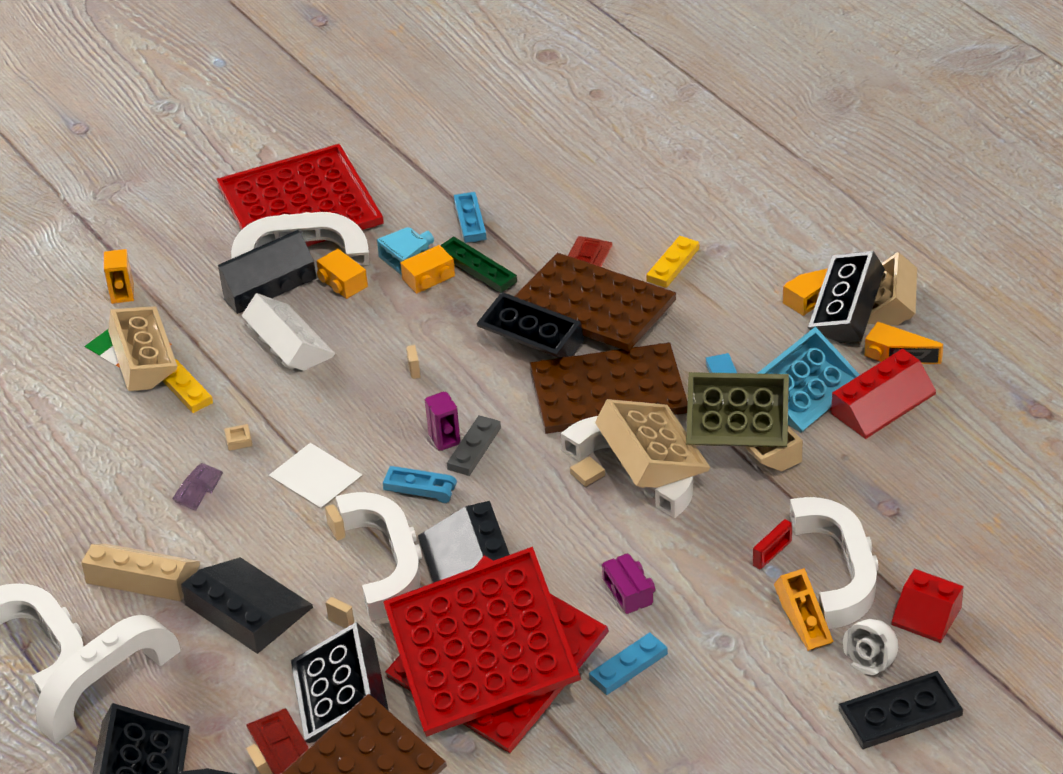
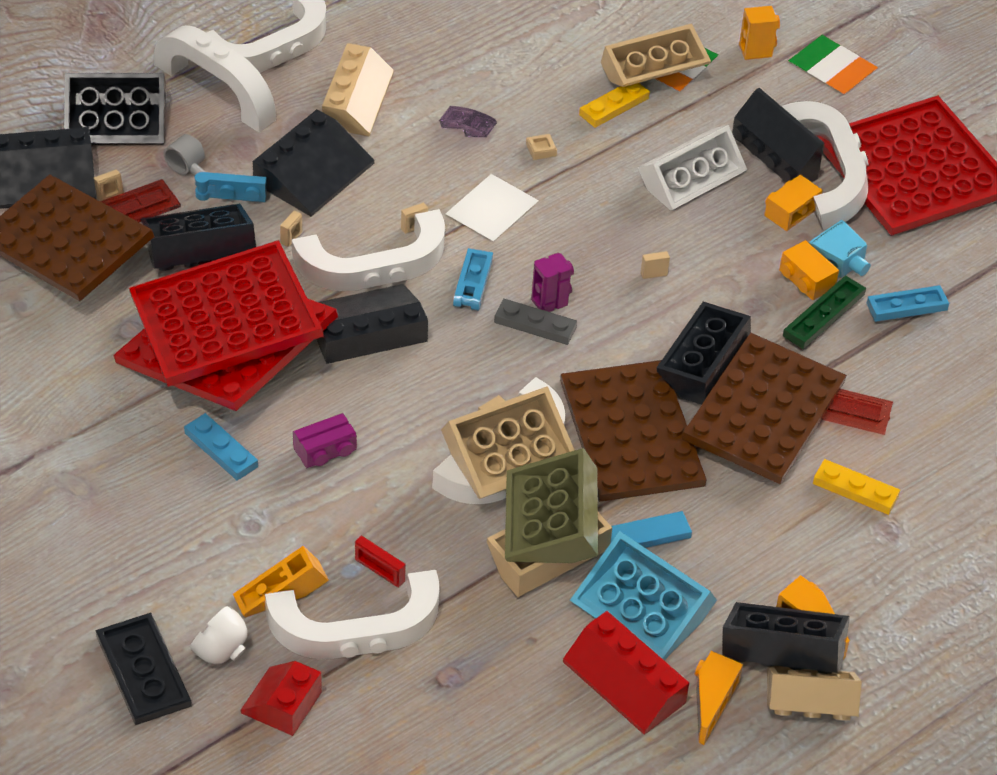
camera: 80 degrees right, 5 degrees up
(153, 245) = (833, 64): none -> sticker
(223, 699) = (185, 155): none -> light grey piece
(274, 662) = (230, 187): none -> dark azure plate

